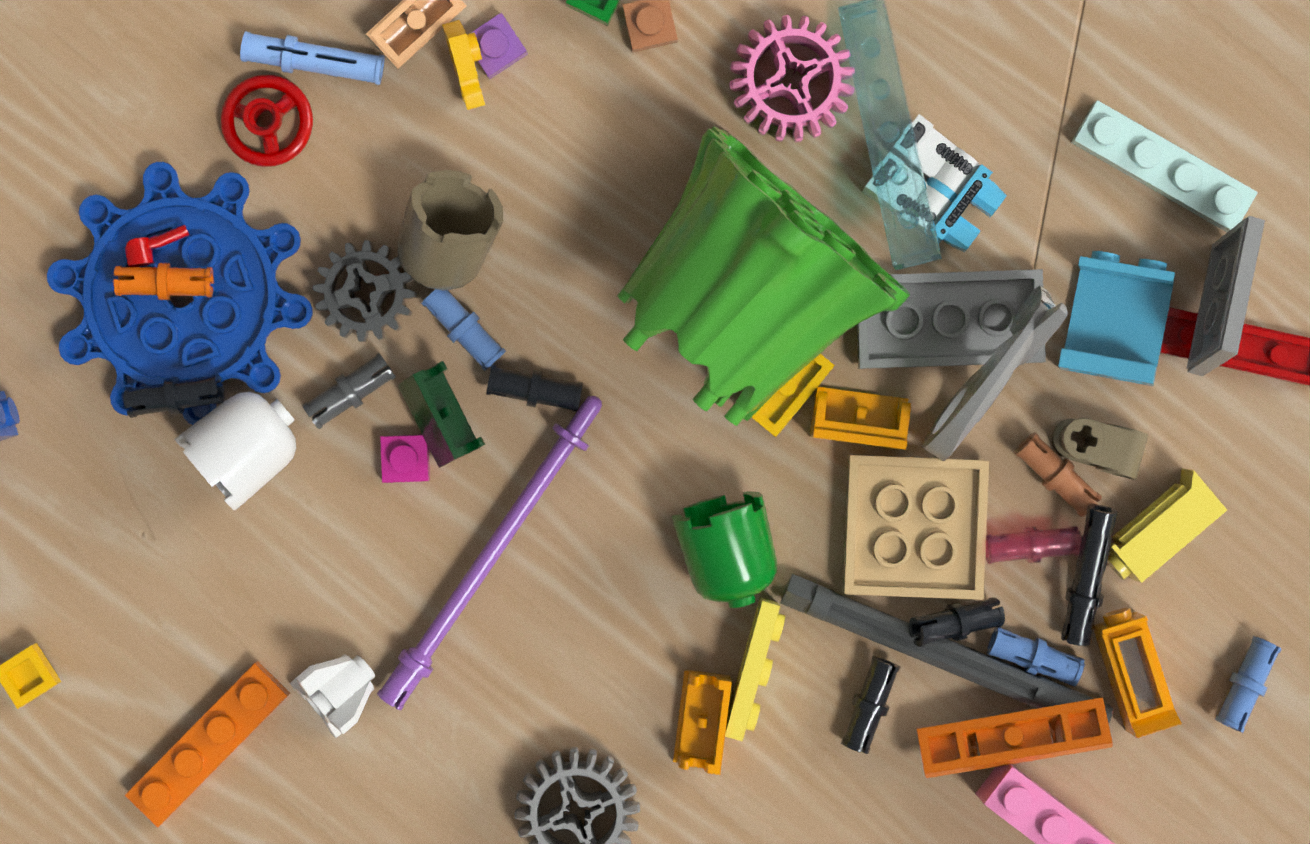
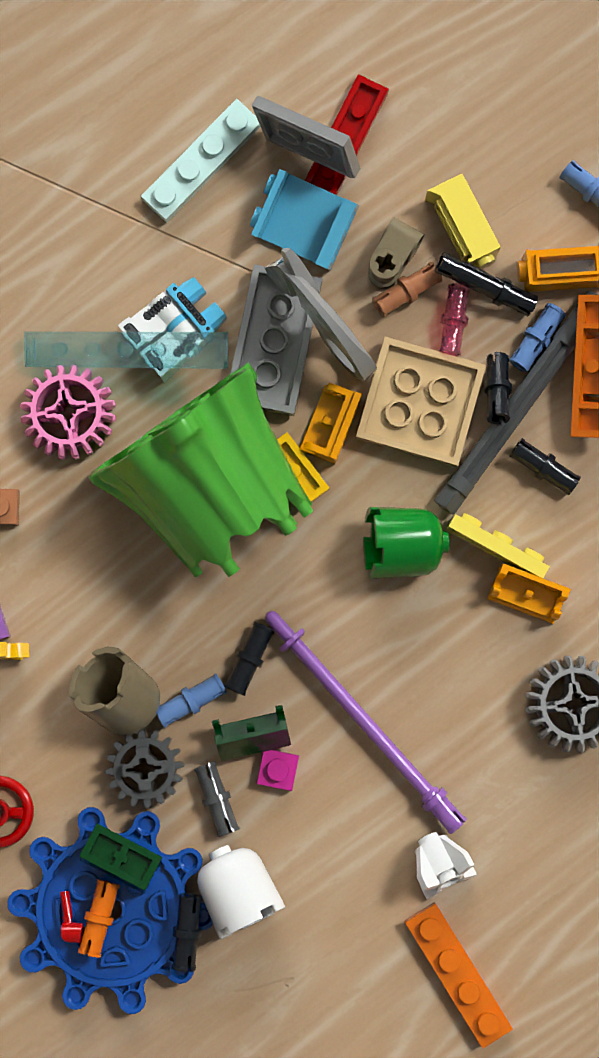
camera: 80 degrees left, 5 degrees down
(243, 289) = (120, 858): none -> dark green hinge

